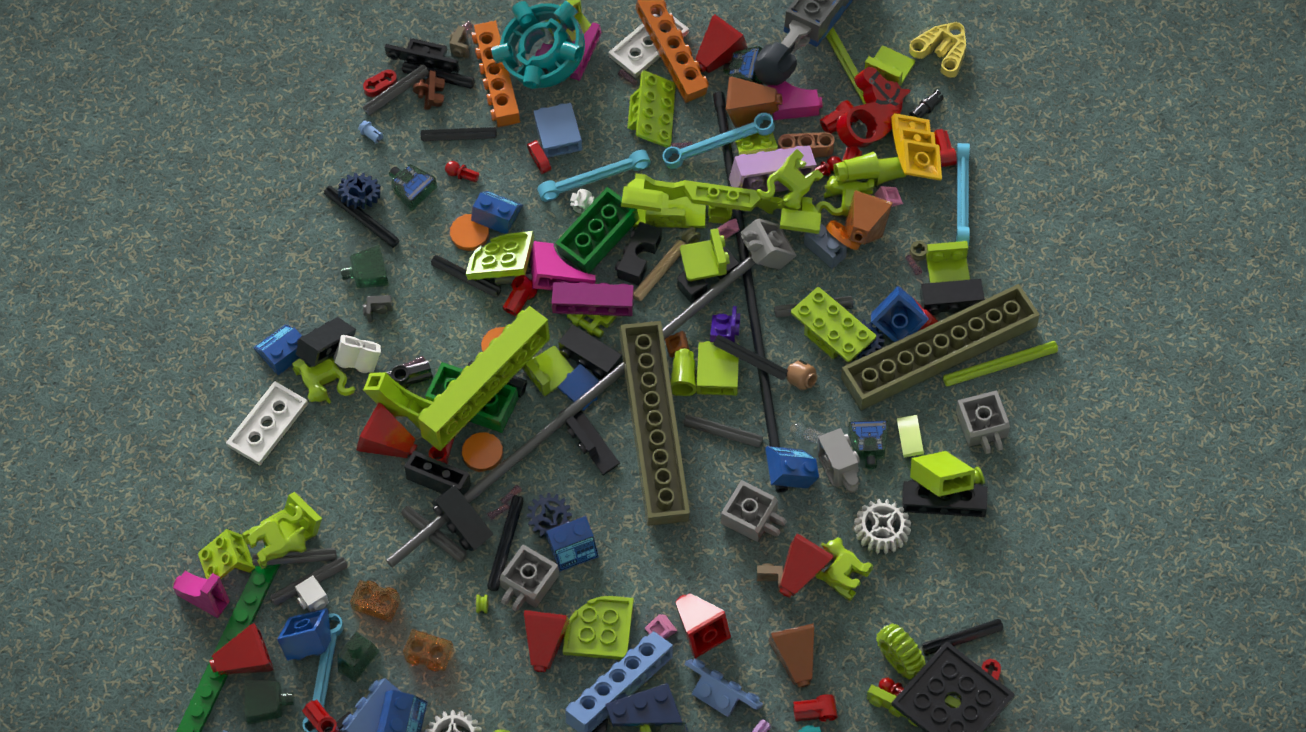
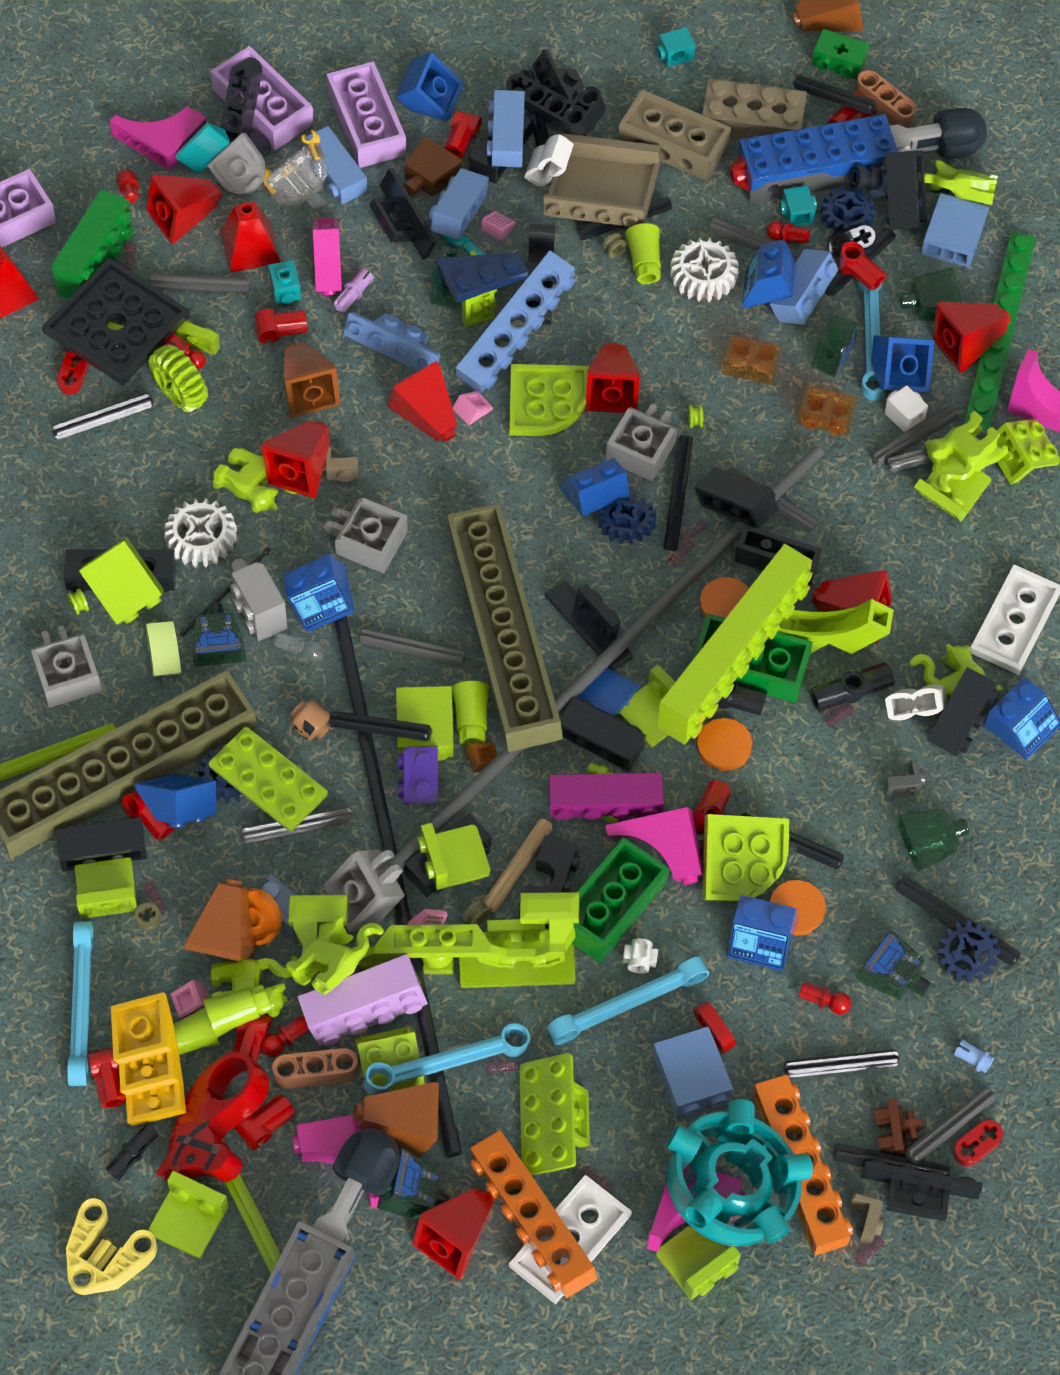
camera: 170 degrees right, 0 degrees up
(863, 485) = (222, 594): none -> black piece

